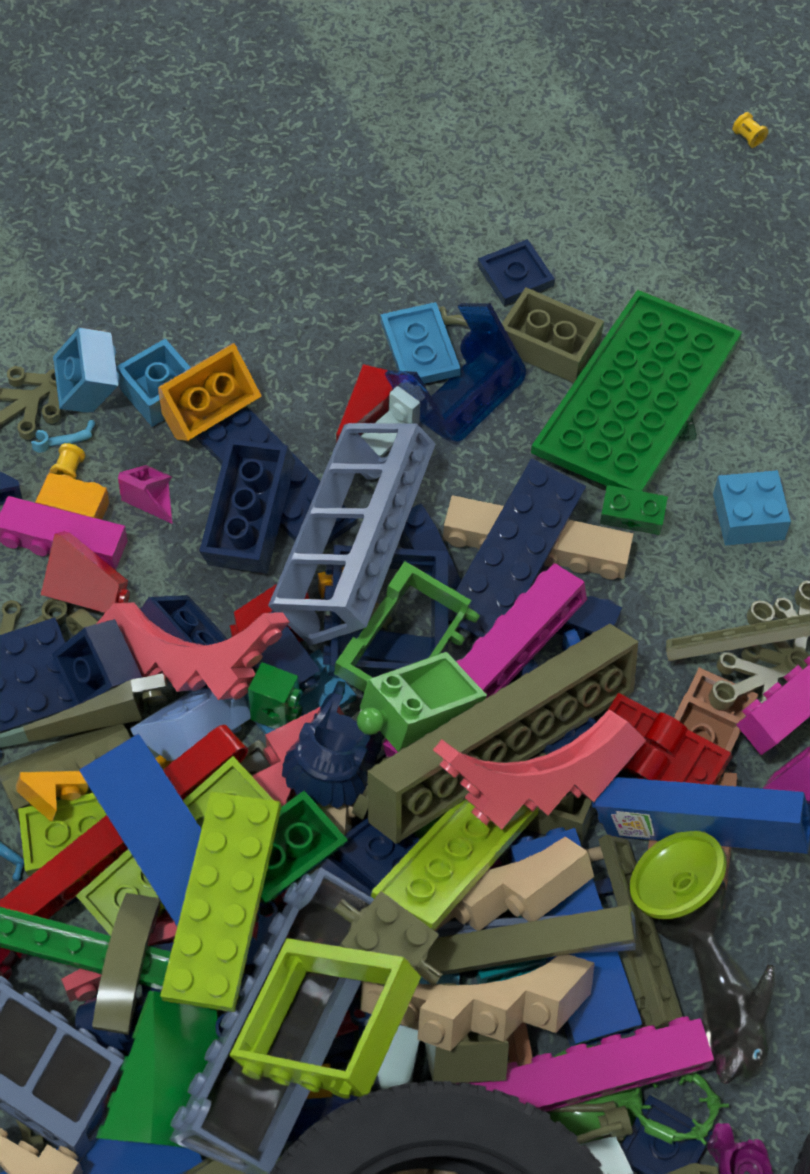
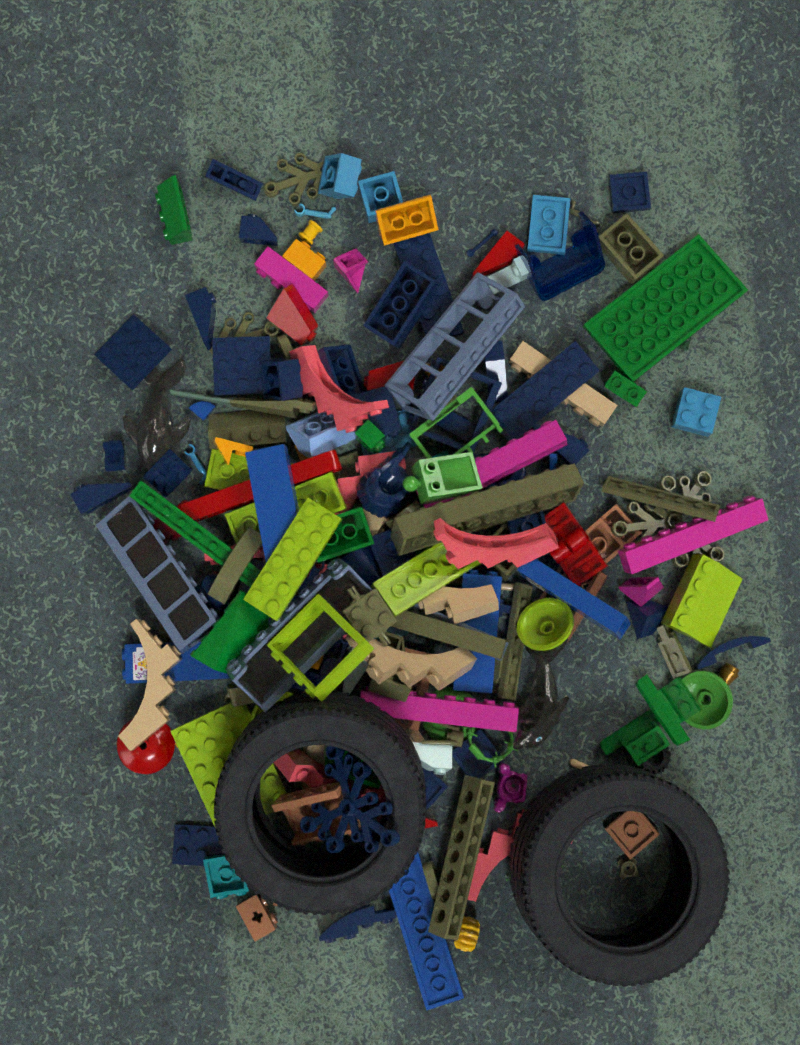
camera: 25 degrees right, 25 degrees up
(321, 417) = (470, 252): none -> dark blue hinge

